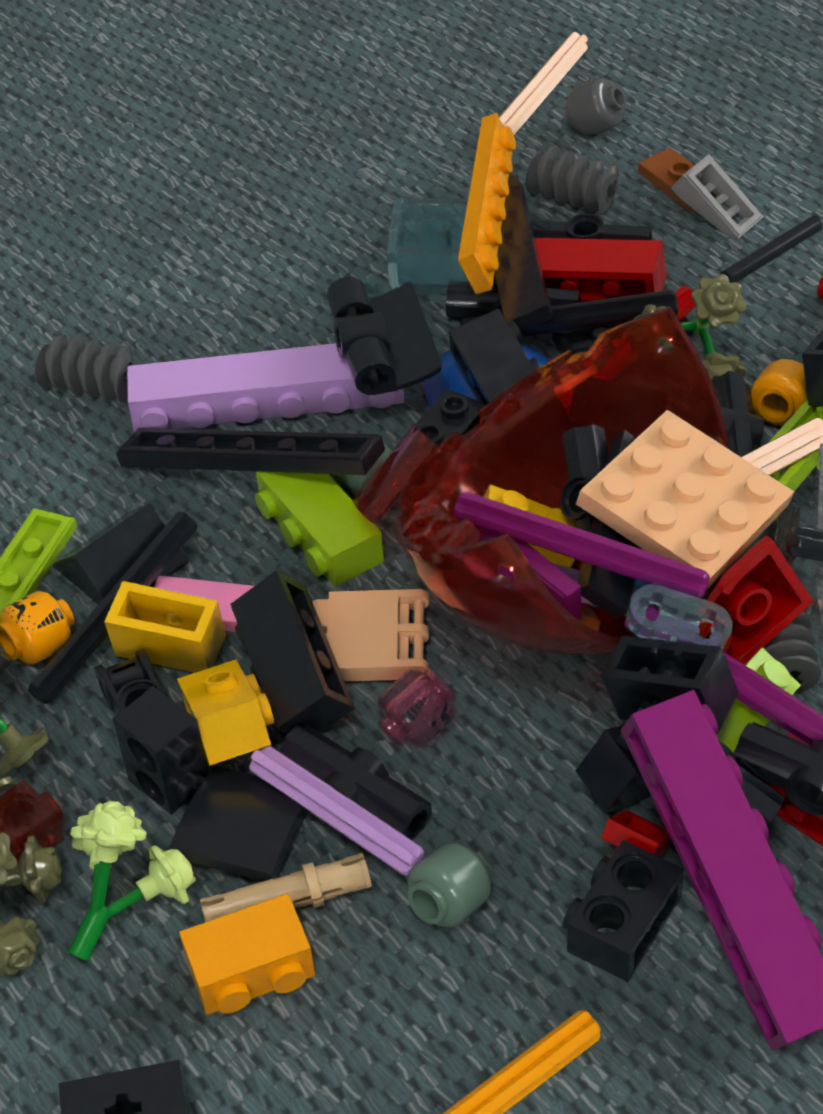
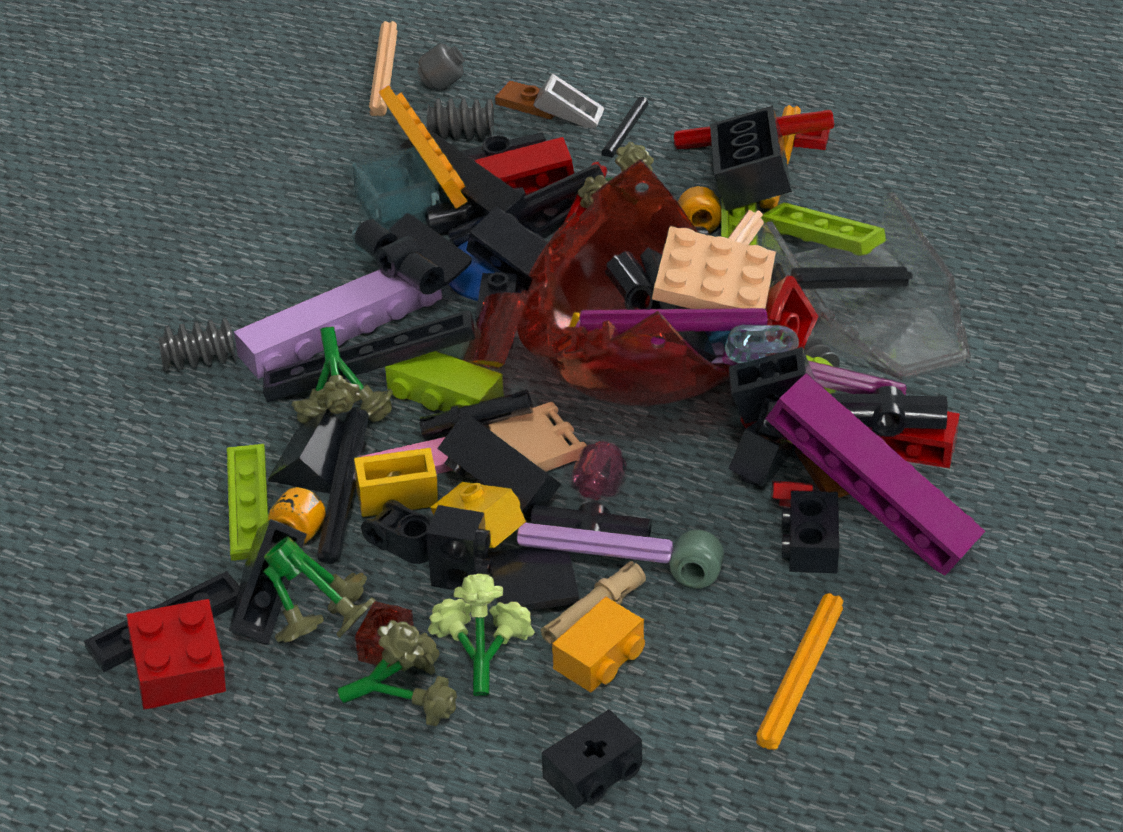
camera: 30 degrees left, 5 degrees down
(164, 495) = (338, 393): none -> olive plant
(324, 574) = (484, 412): none -> black pin

